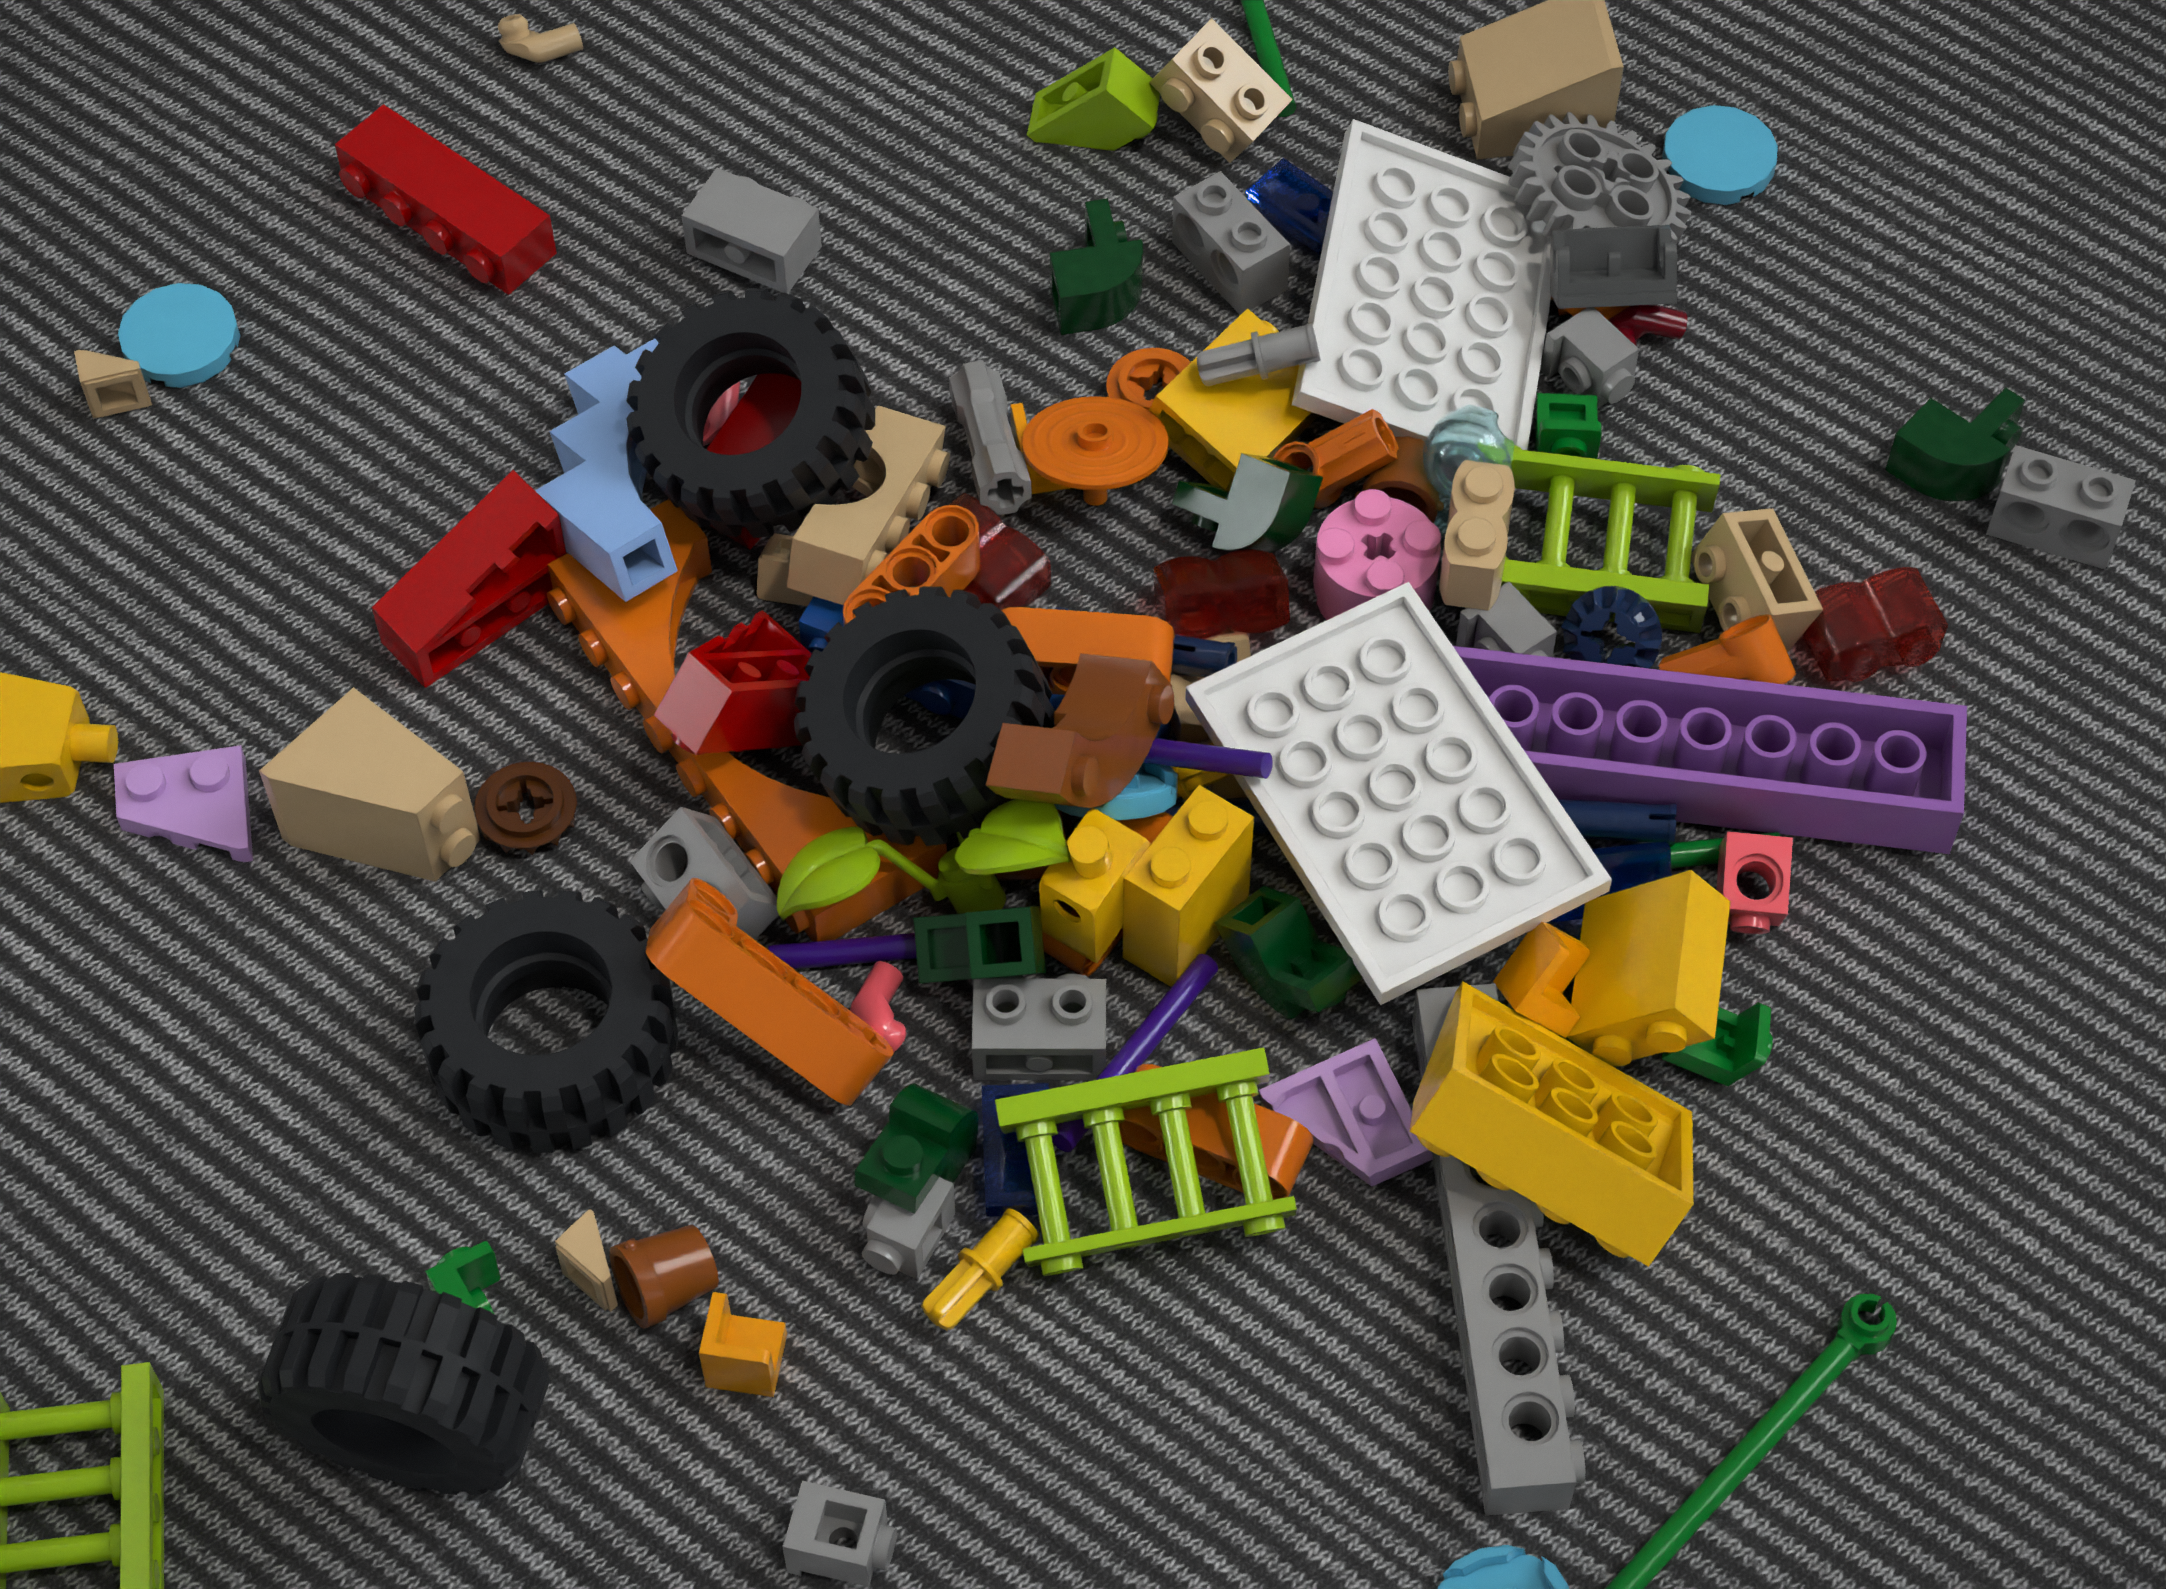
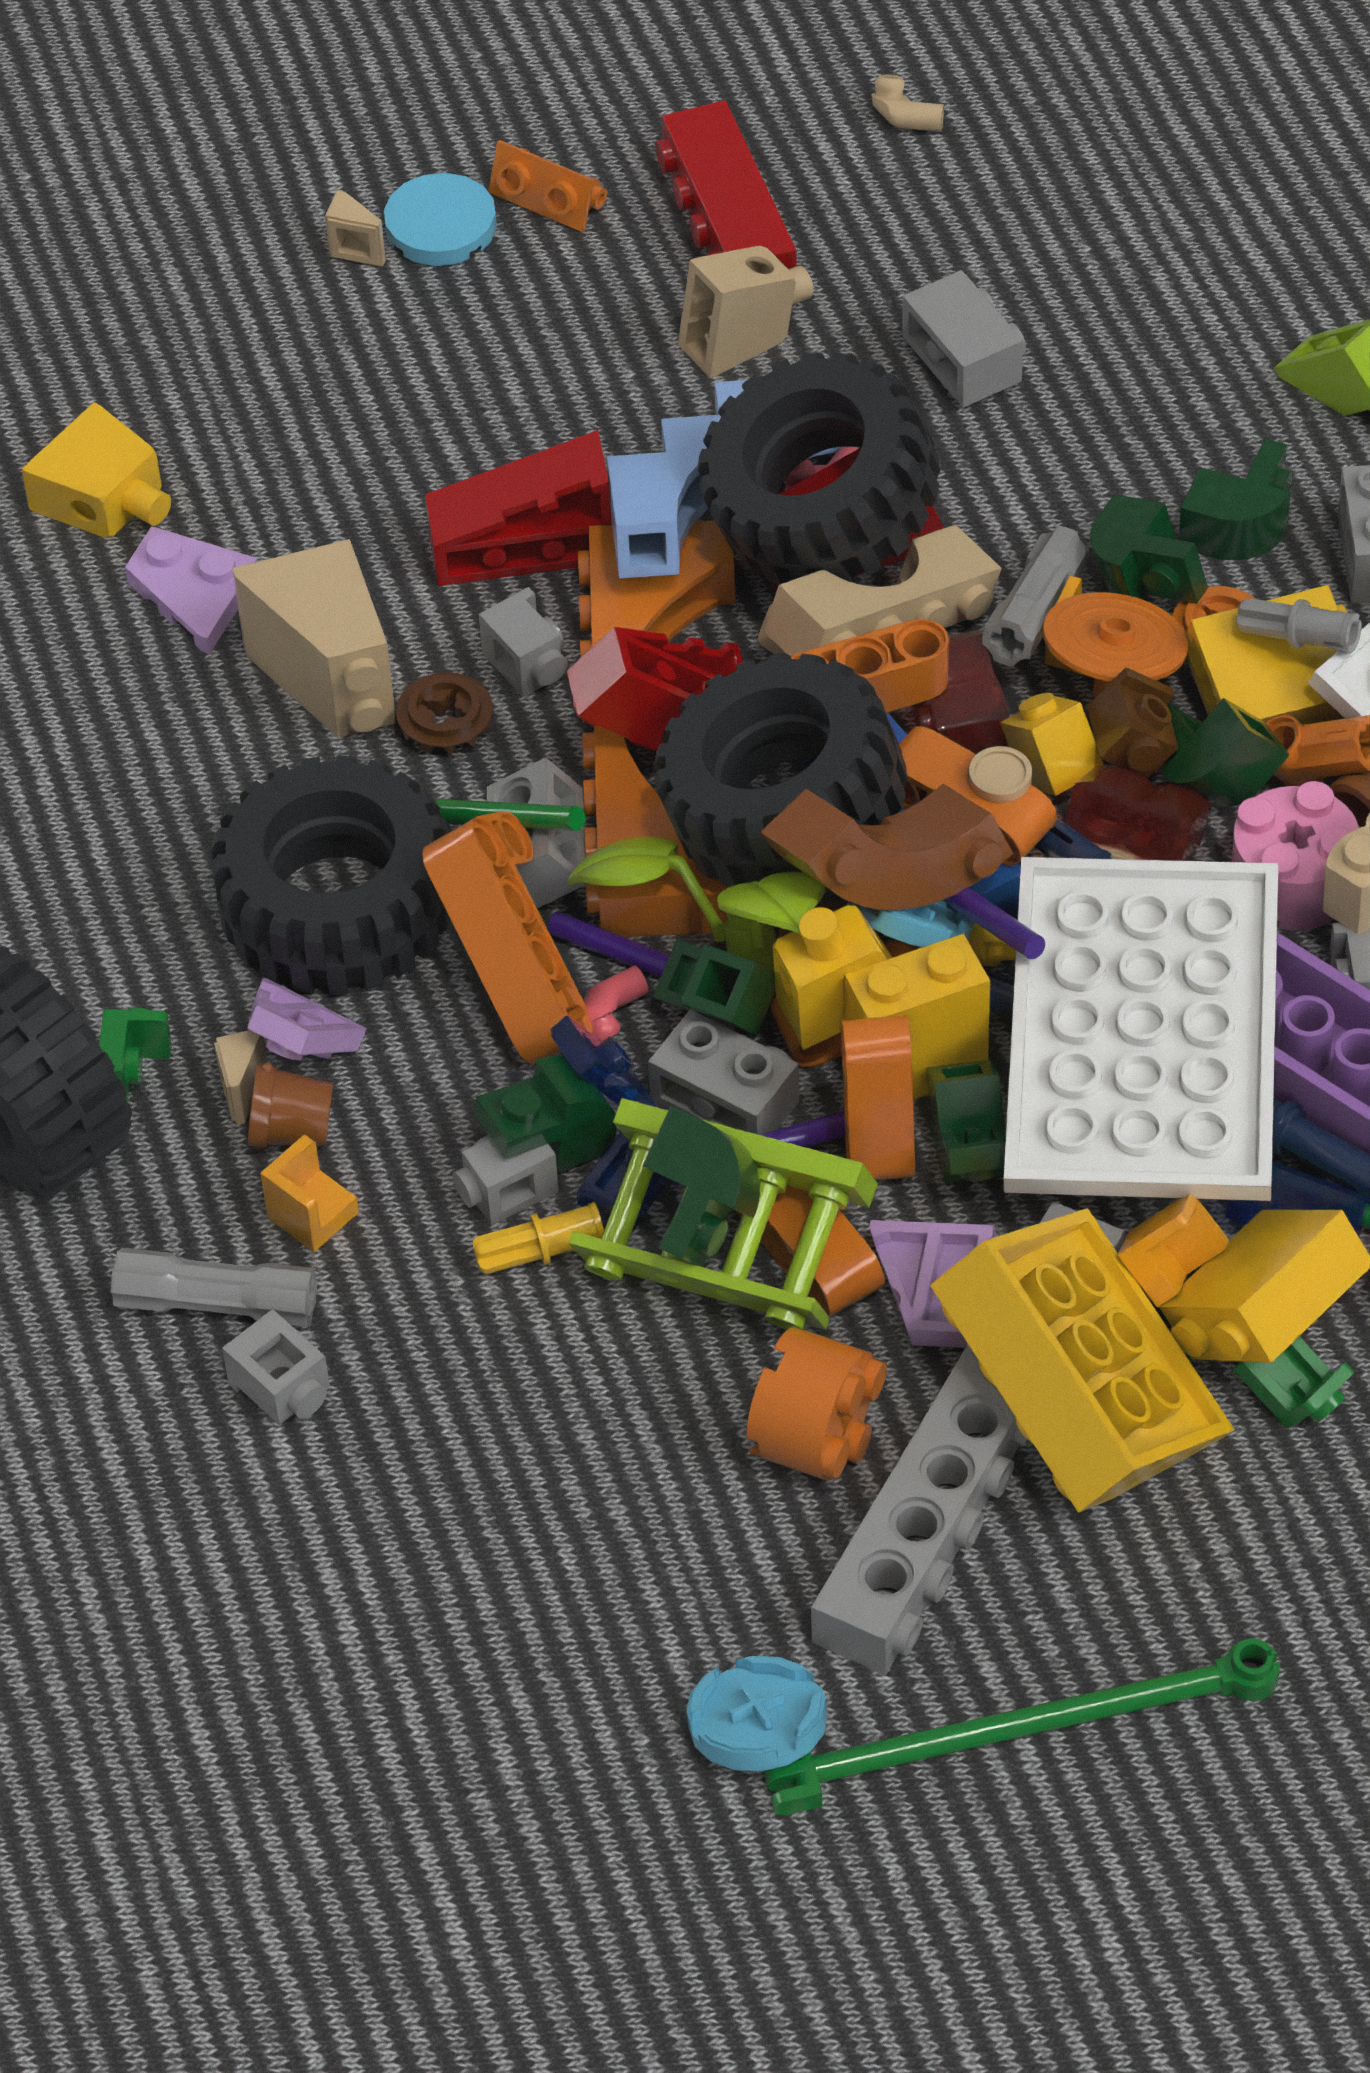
camera: 35 degrees right, 5 degrees down
(259, 260) = (544, 186): none -> orange hinge
(529, 294) = (738, 306): none -> tan torso
(556, 706) = (522, 643): none -> light grey brick
(611, 1184) = (300, 1025): none -> lavender wing
(667, 1506) = (166, 1282): none -> light grey axle
(674, 880) = (530, 815): none -> green bar
(933, 1073) = (599, 1062): none -> clear blue plate
(1048, 360) = (1141, 554): none -> dark green brick
(1103, 566) = (1054, 740): none -> yellow brick
(1111, 619) = (1000, 774): none -> tan piece
(1133, 1123) = (717, 1176): none -> dark green brick
(1166, 513) = (1134, 722): none -> reddish brown brick
(1210, 974) = (879, 1095): none -> orange beam
(1354, 1294) = (815, 1404): none -> orange brick

